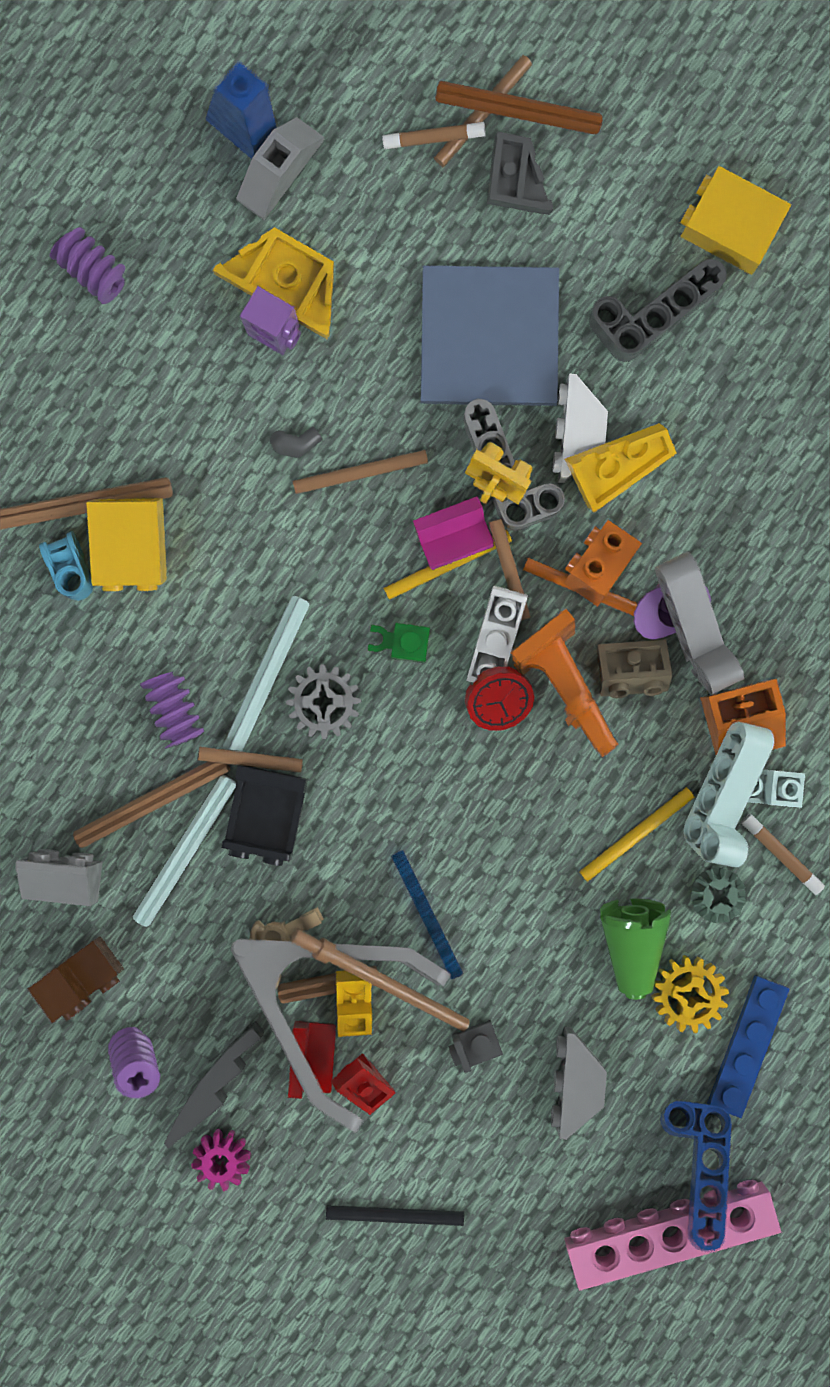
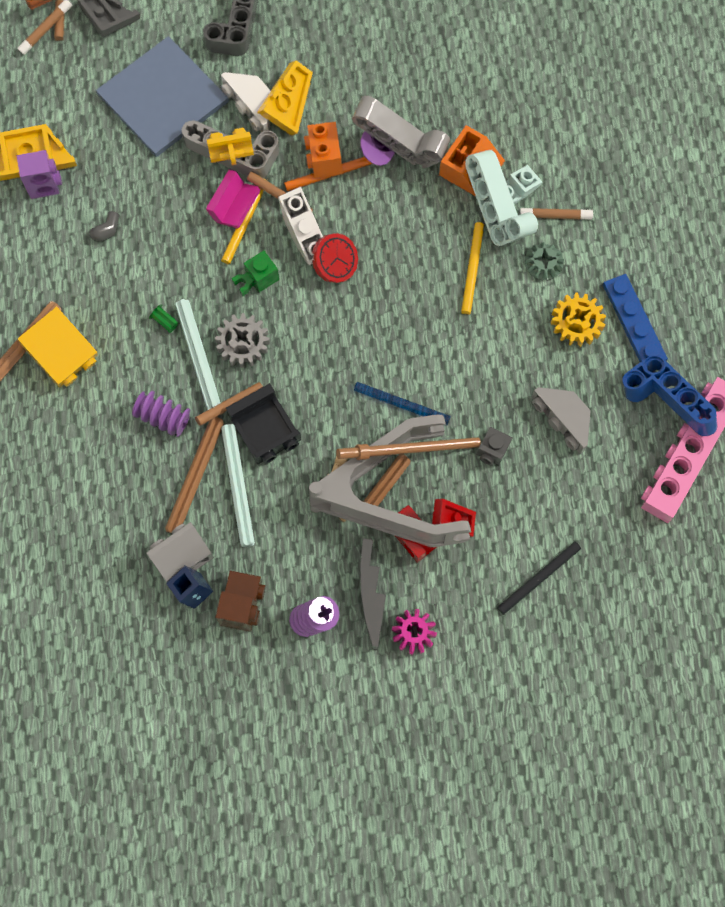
camera: 45 degrees left, 15 degrees down
(41, 920) = (189, 587): none -> dark blue brick
(64, 561) = (32, 389): medium azure piece -> none
(266, 604) = (164, 318): none -> green piece
(353, 1005) = (406, 481): yellow slope -> none
(360, 471) = (154, 214): medium nougat bar -> none
(549, 654) = (338, 212): orange piece -> none
(634, 668) = (391, 188): dark tan bracket -> none
(635, 943) = (526, 318): bright green cone -> none

